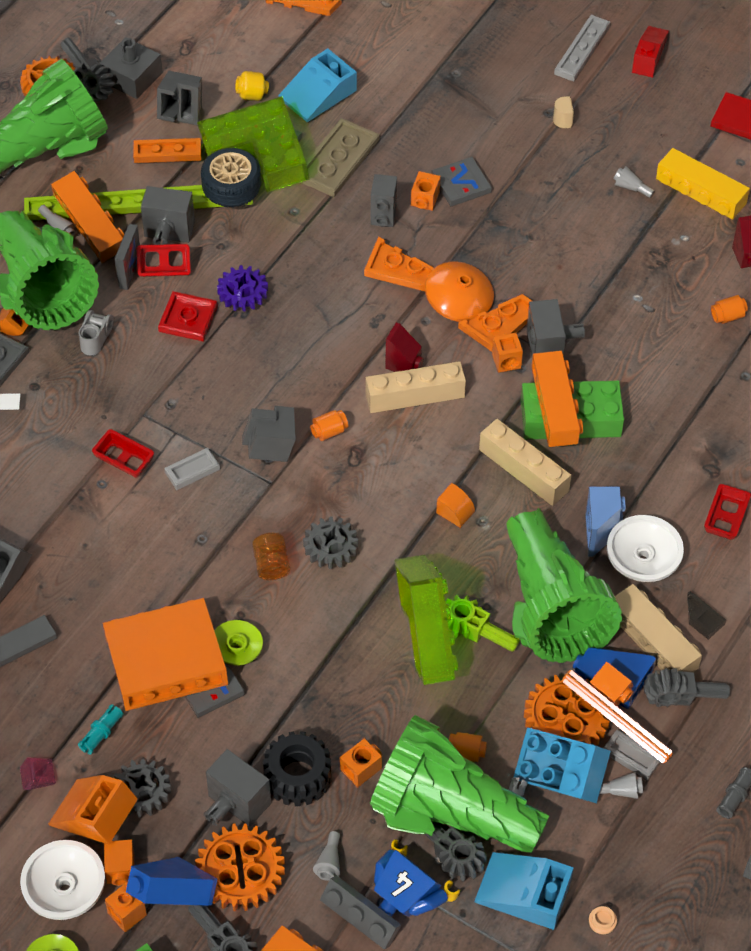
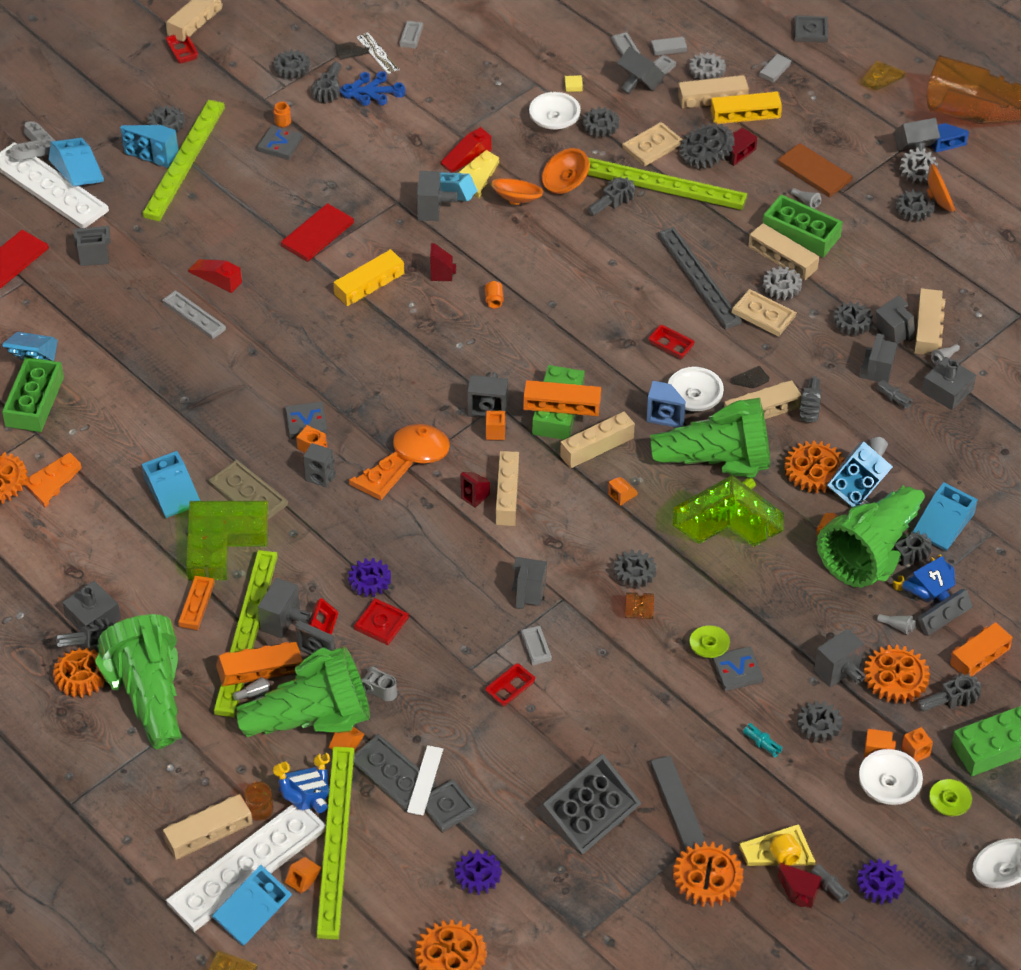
camera: 75 degrees left, 5 degrees down
(37, 773) = (789, 789): clear pink slope -> none
(95, 808) = (836, 748): orange slope -> none
(165, 654) = (709, 683): orange panel -> none
(171, 882) = (910, 707): blue slope -> none
(179, 98) = (147, 577): dark grey plate -> none
(231, 177) = (258, 556): black wheel -> none
(251, 85) = (148, 530): yellow head -> none
(297, 749) = (825, 611): black tyre -> none
(329, 425) = (525, 546): orange brick -> none
(359, 772) = (828, 588): orange brick -> none
(506, 319) = (460, 426): orange wing -> none
(563, 112) = (263, 340): tan brick -> none
(602, 920) = (973, 486): light nougat plate -> none
(612, 684) = (808, 428): orange brick -> none
(617, 716) = (828, 436): axle -> none
(627, 179) = (345, 320): light grey cone -> none
(631, 665) = (790, 431): blue slope -> none
(631, 755) = (850, 441): light grey tile -> none

